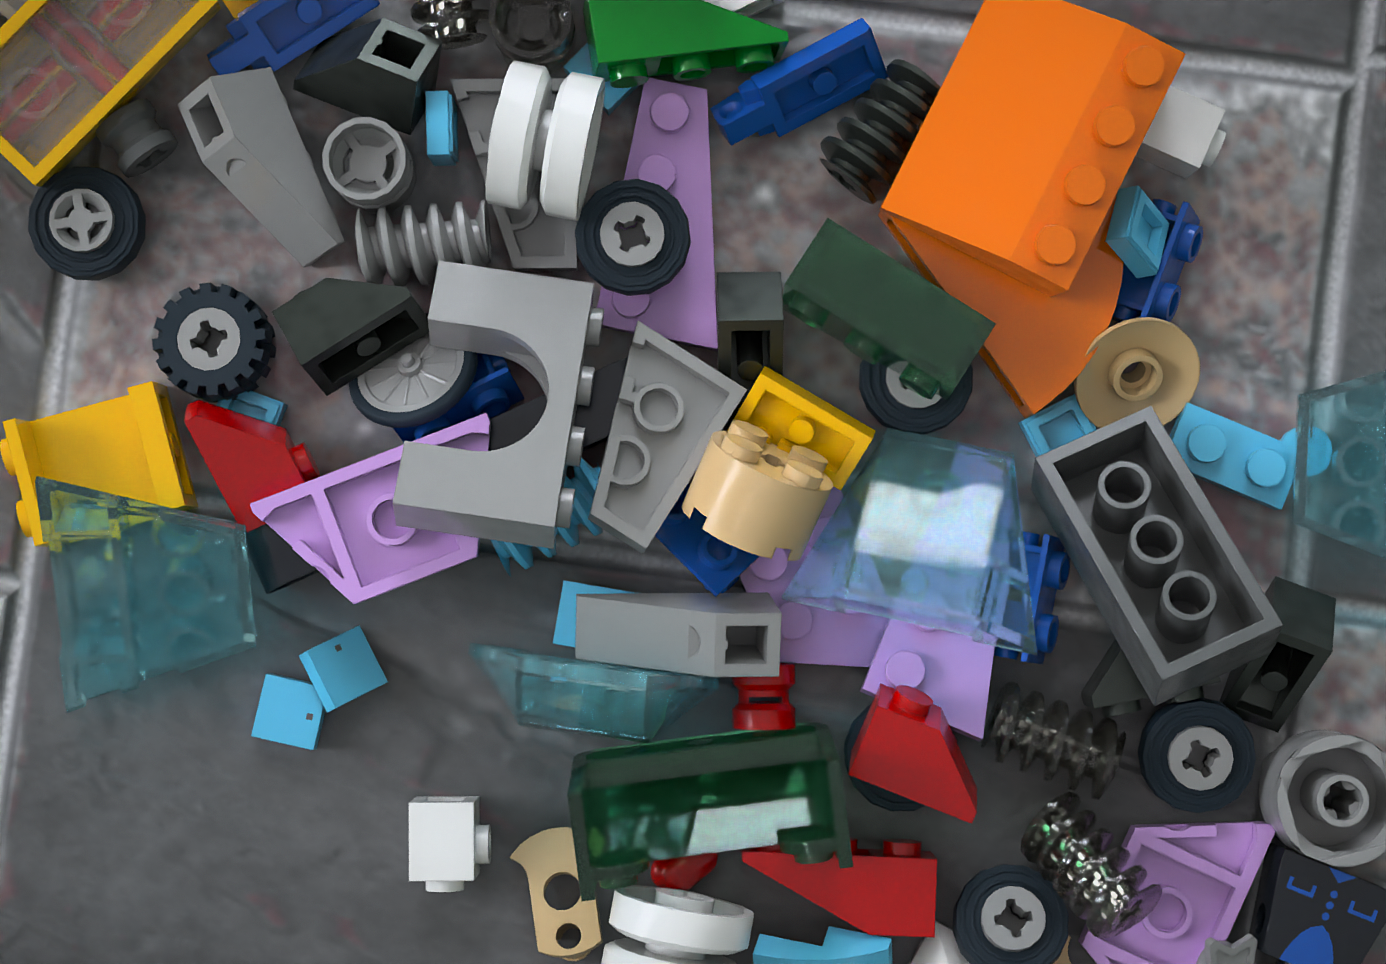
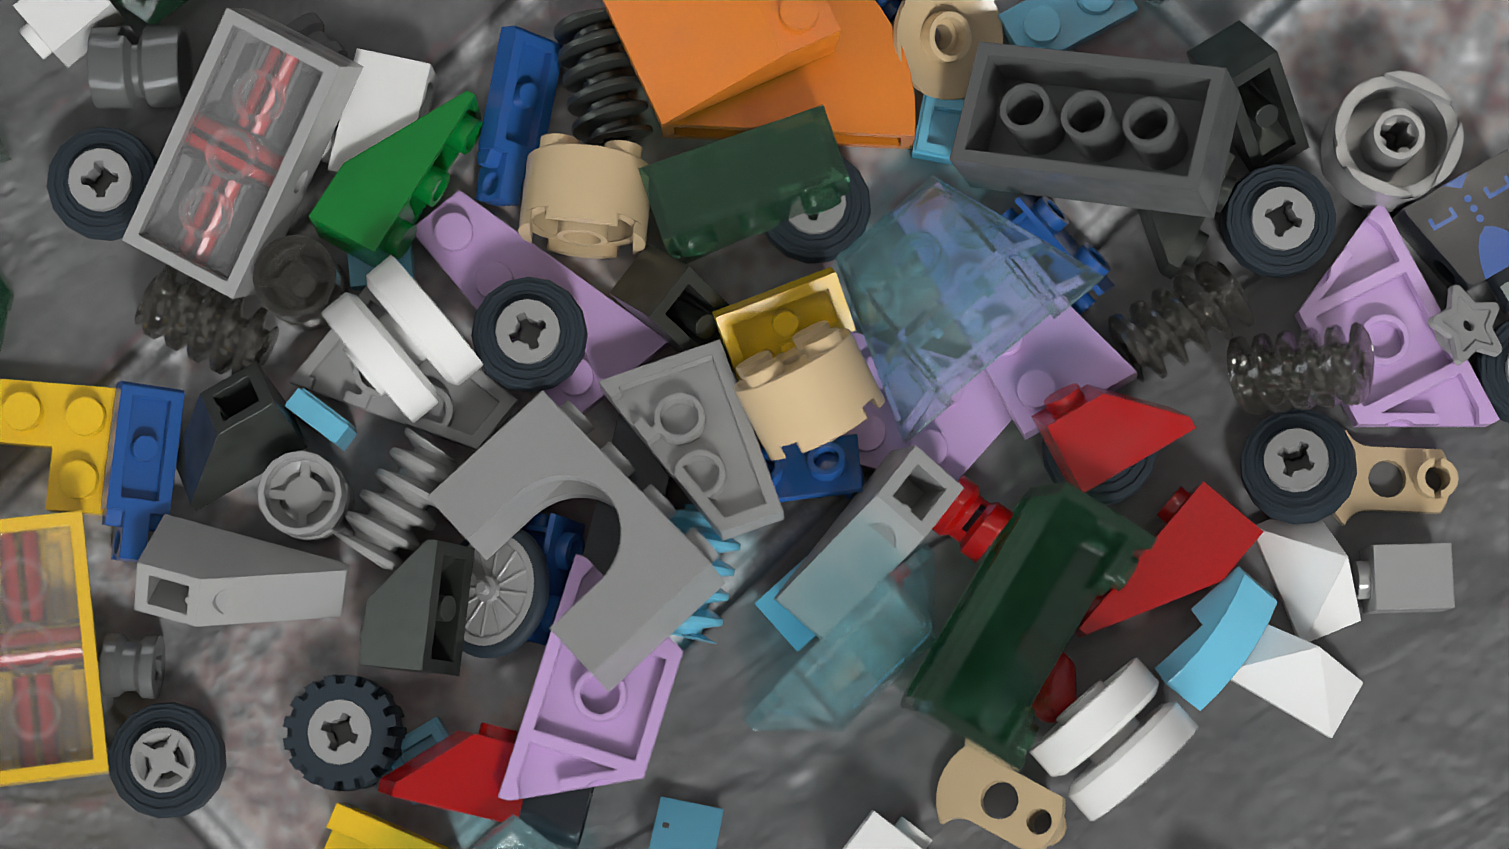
camera: 50 degrees left, 5 degrees down
(776, 192) = (585, 197): none -> tan brick

